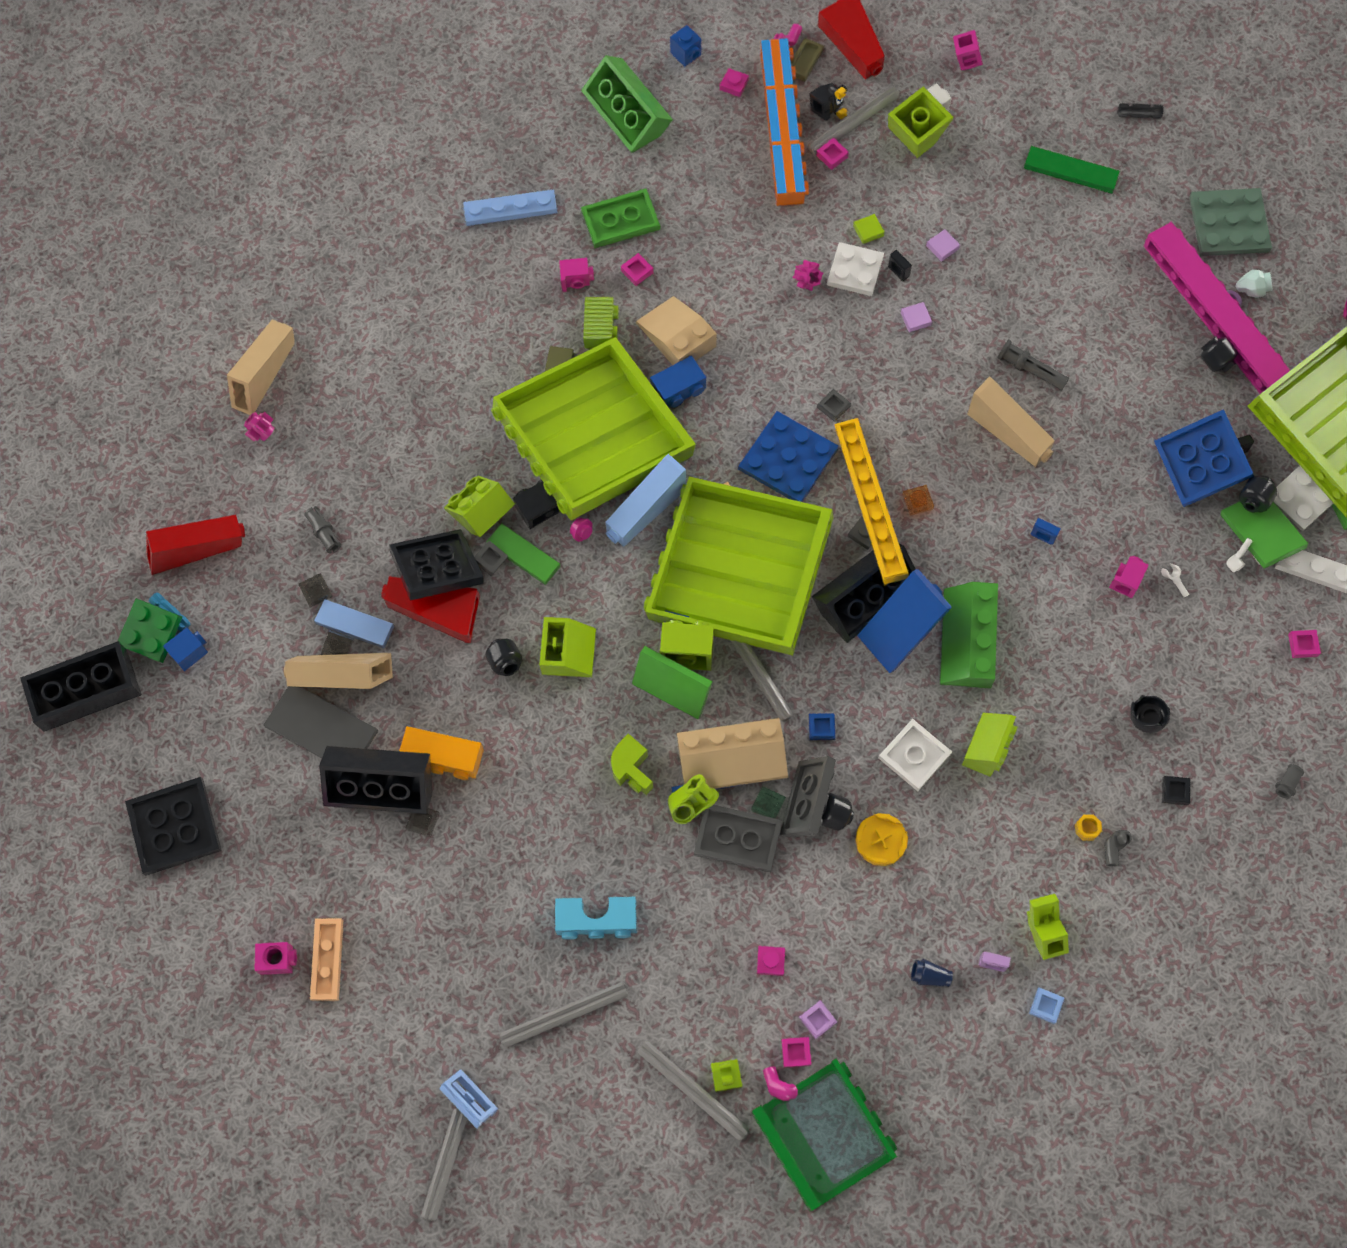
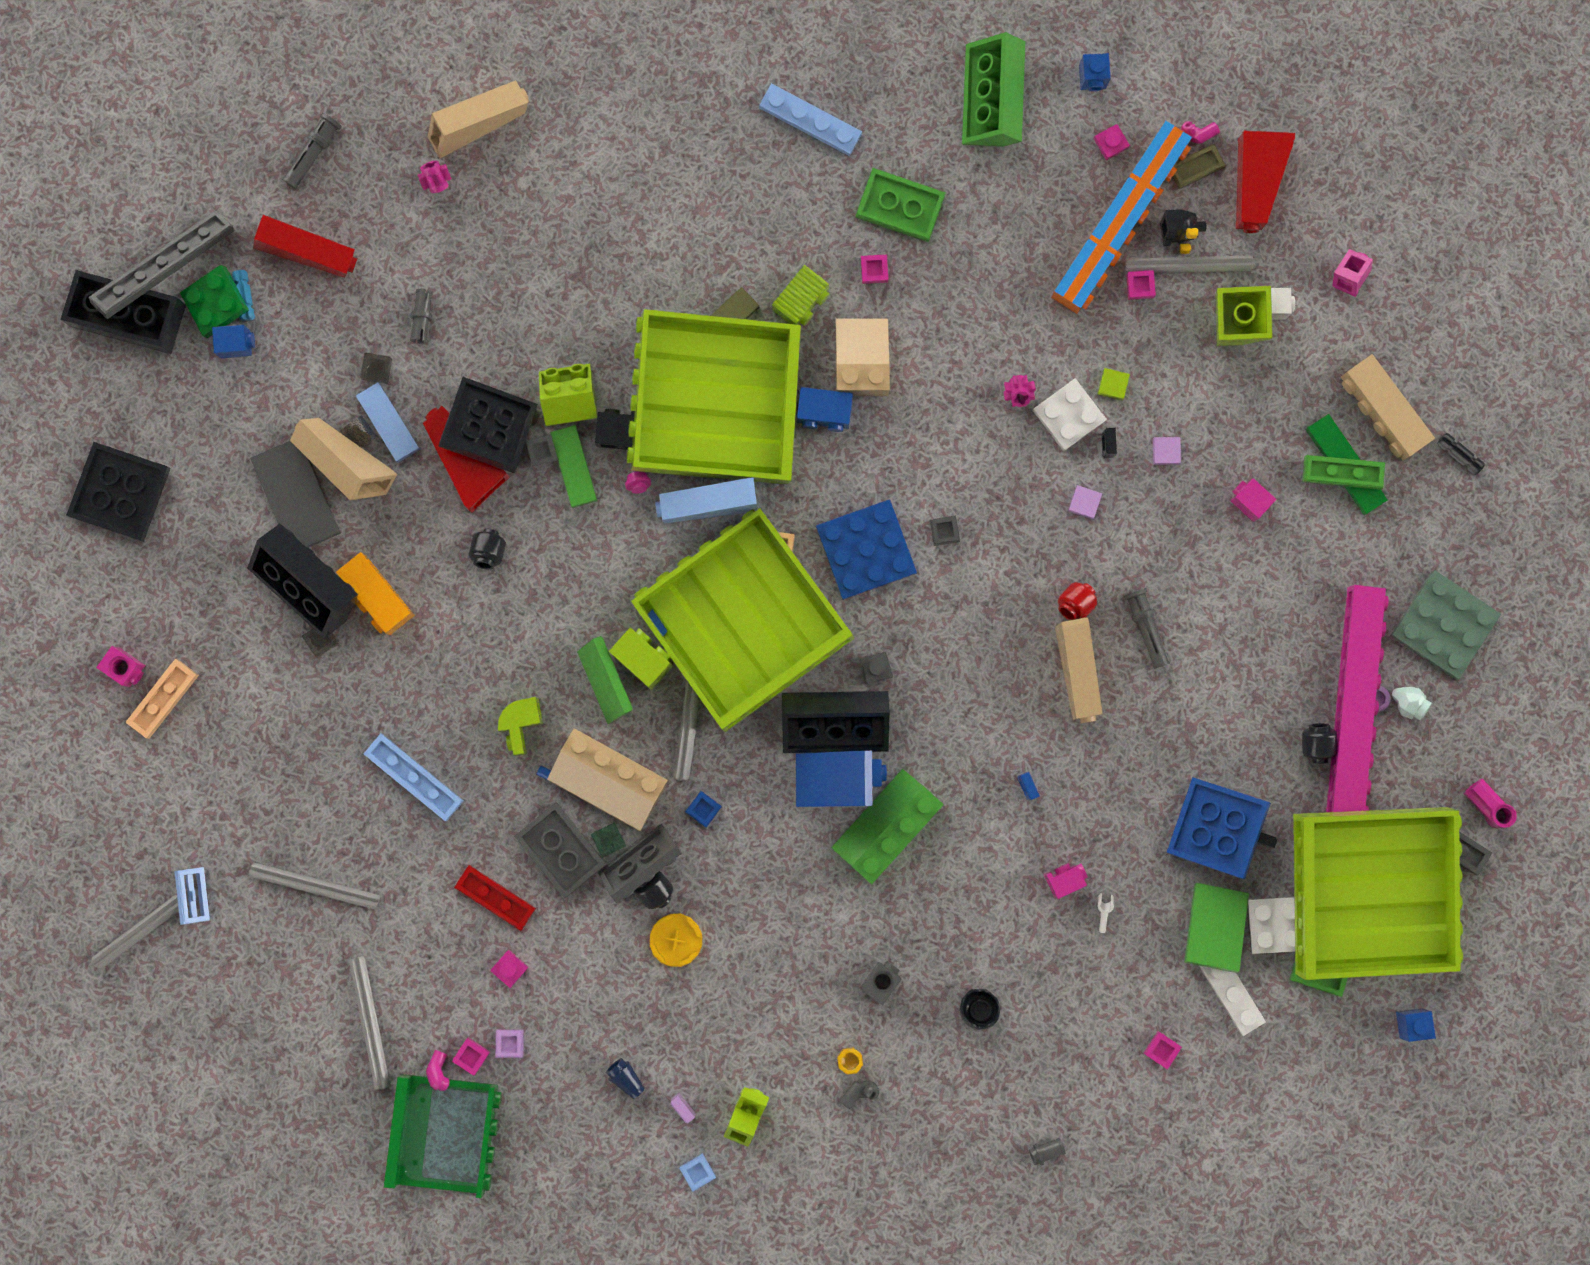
camera: 30 degrees right, 15 degrees up
(87, 628) = (161, 264): none -> dark grey tile
(148, 464) = (317, 141): none -> dark grey pin
(567, 648) = (544, 582): lime slope -> none
(572, 921) = (377, 817): medium azure arch -> none
(575, 273) = (815, 233): dark pink brick -> none
(578, 868) = (413, 777): none -> light blue plate
(692, 798) = (542, 792): lime piece -> none
(715, 914) = (495, 897): none -> red tile
(726, 1075) = (404, 1031): lime tile -> none
(871, 501) = (898, 647): yellow tile -> none
(915, 755) = (759, 892): white plate -> none
(918, 500) = (945, 673): clear orange plate -> none
(967, 381) = (1077, 601): none -> red head
(988, 743) = (824, 932): lime slope -> none
(1029, 232) = (1252, 499): none -> dark pink brick
(1058, 760) = (872, 990): none -> dark grey brick
(1066, 114) = (1387, 408): none -> tan brick
(1074, 173) = (1343, 472): none -> bright green tile
(1176, 790) = (948, 1085): black tile -> none
(1234, 561) = (1167, 937): white hand -> none
(1258, 494) = (1235, 896): black head -> none

